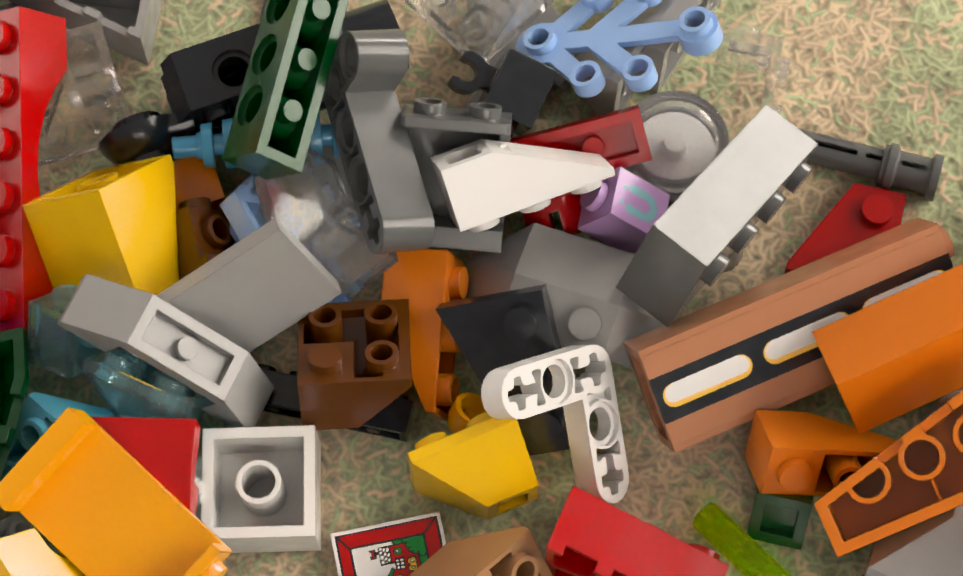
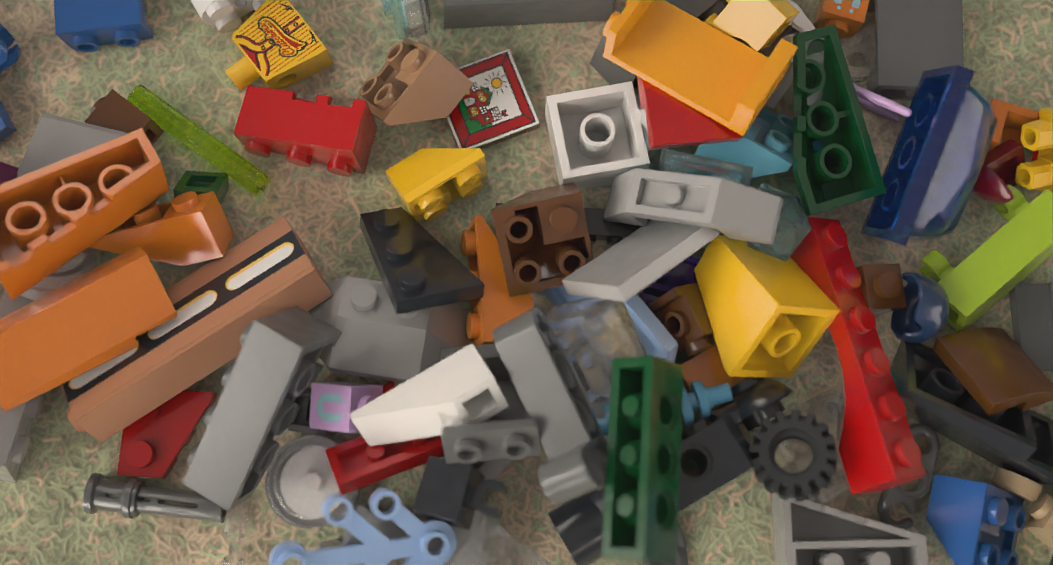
camera: 170 degrees right, 10 degrees up
(123, 33) = (798, 427): none -> black tyre
(464, 409) = (447, 231): light orange hinge -> none
(579, 397) = (359, 238): white beam -> none

